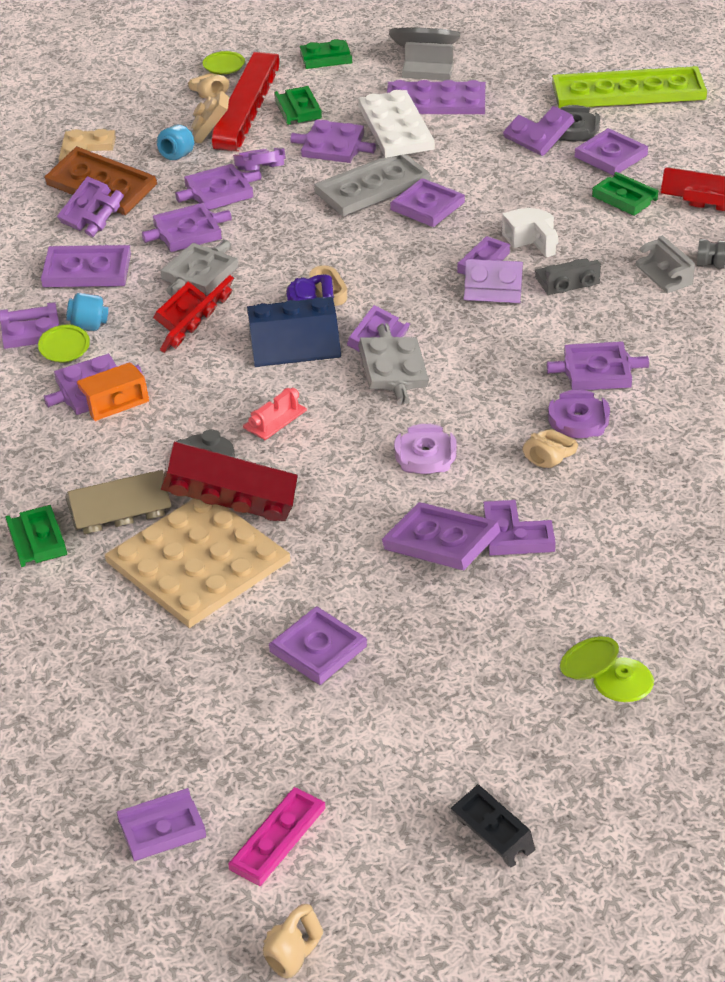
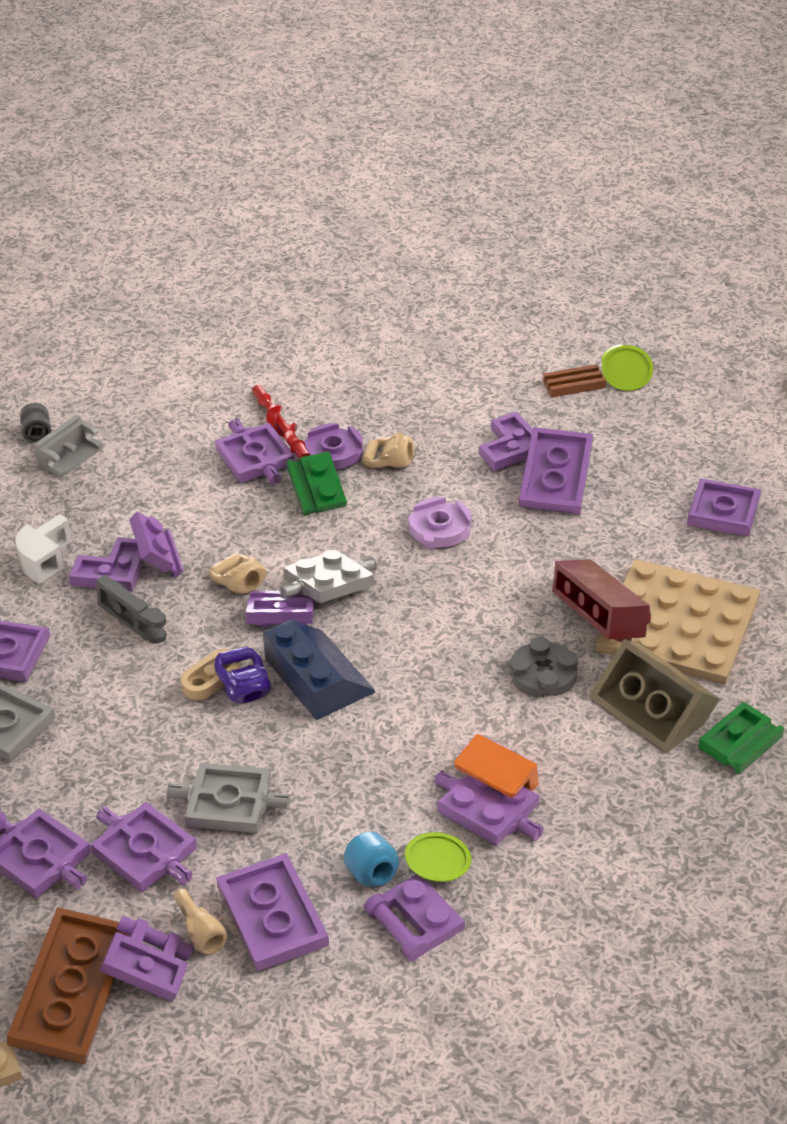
camera: 115 degrees left, 0 degrees up
(92, 231) = (203, 928): none -> tan piece
(186, 308) = (321, 765): red bracket -> none
(275, 416) = (463, 640): coral hinge -> none
(427, 259) = (131, 610): none -> dark grey hinge
(430, 323) = (238, 573): none -> tan piece
(524, 387) = (316, 483): none -> green plate
(569, 276) = (109, 507): dark grey bracket -> none
(601, 597) = (574, 380): none -> dark orange tile
(642, 384) = (278, 423): none -> red piece

